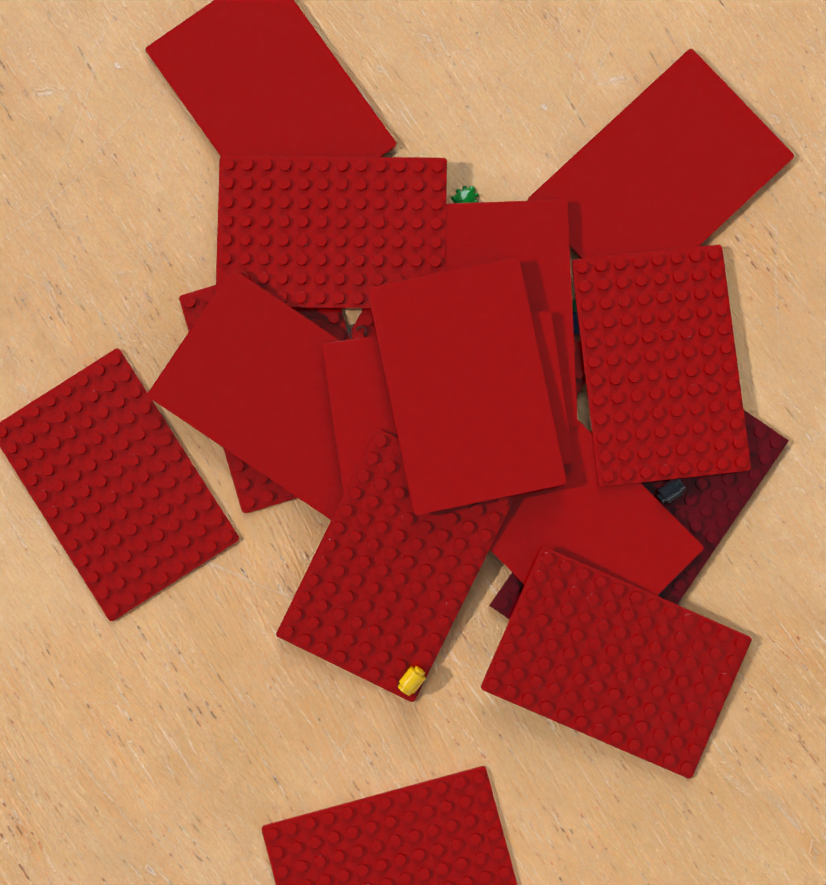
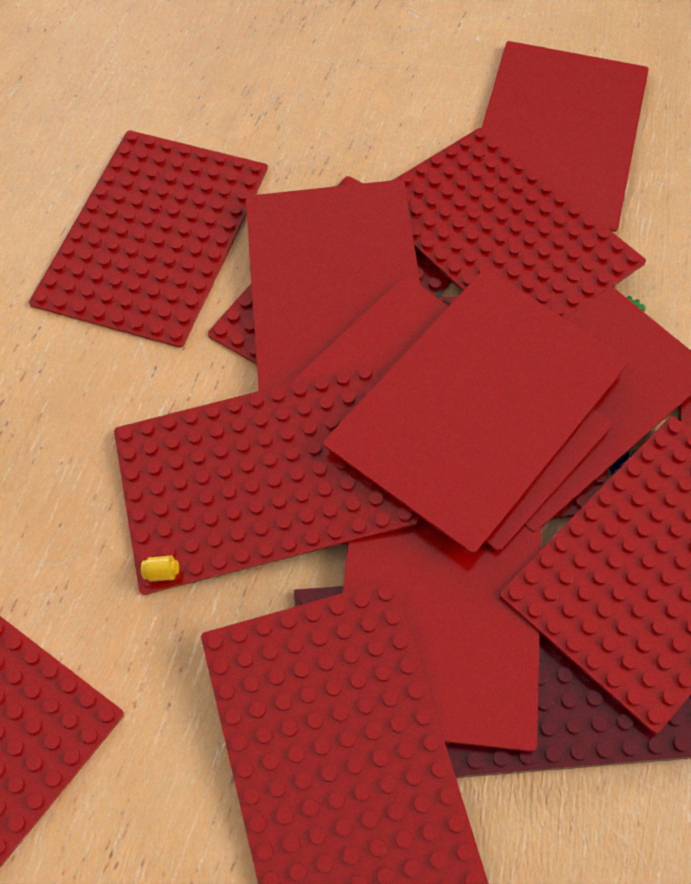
camera: 50 degrees right, 25 degrees down
(671, 491) = (559, 668): black brick -> none

